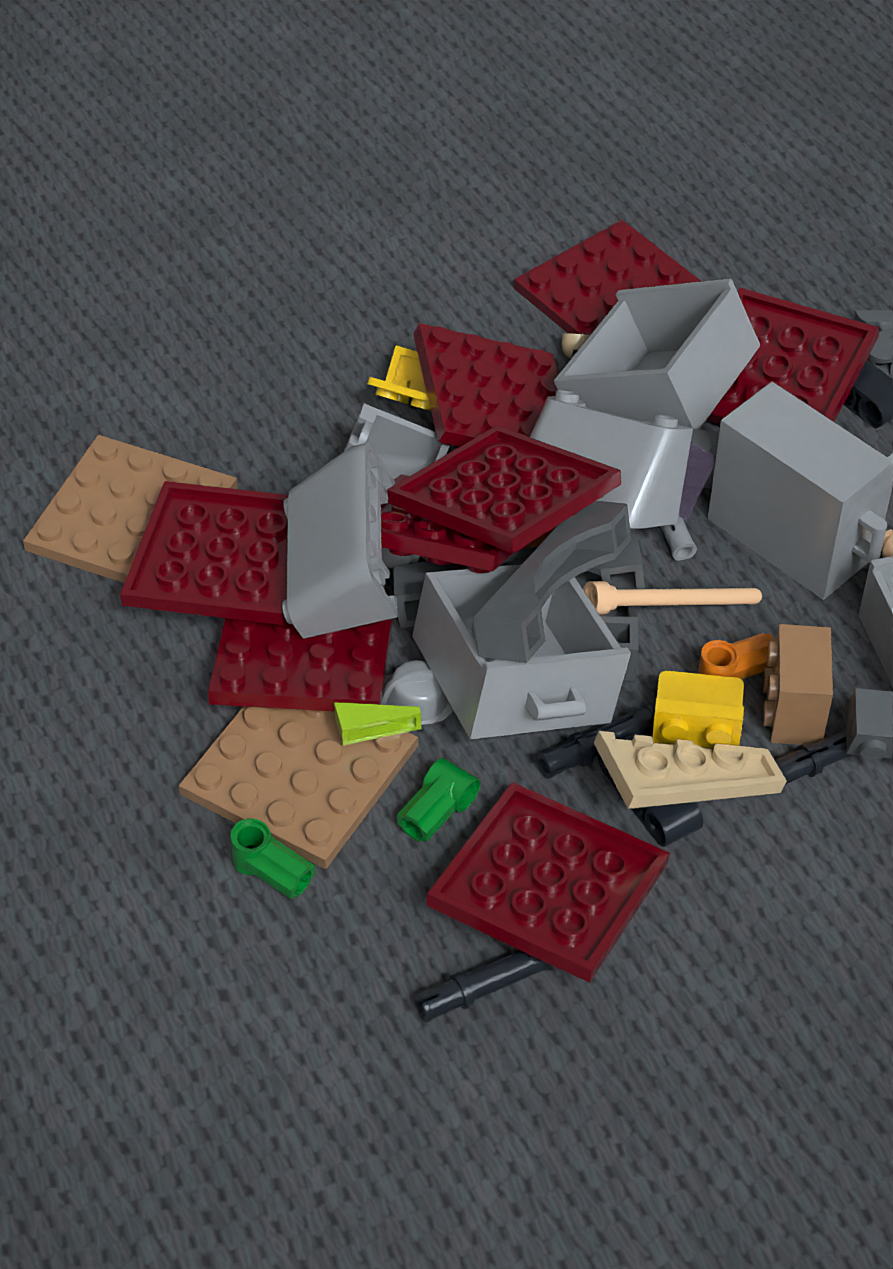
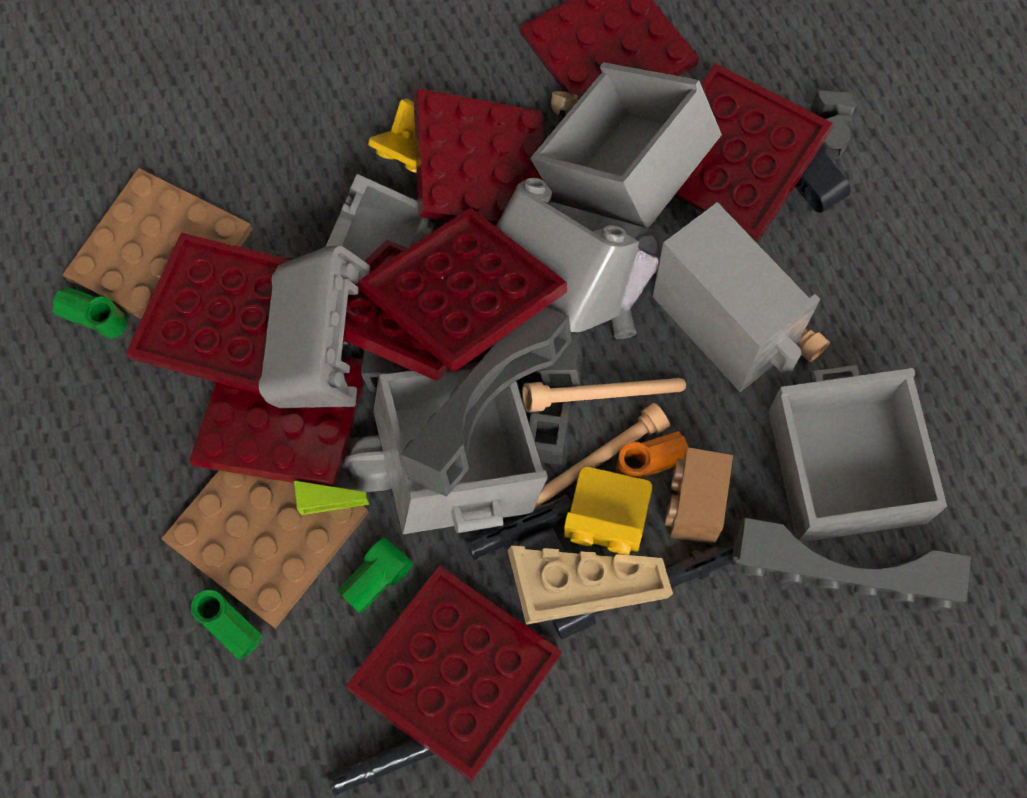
camera: 10 degrees right, 20 degrees up
(73, 572) = (89, 312): none -> green piece
(730, 627) = (651, 421): none -> light nougat piece

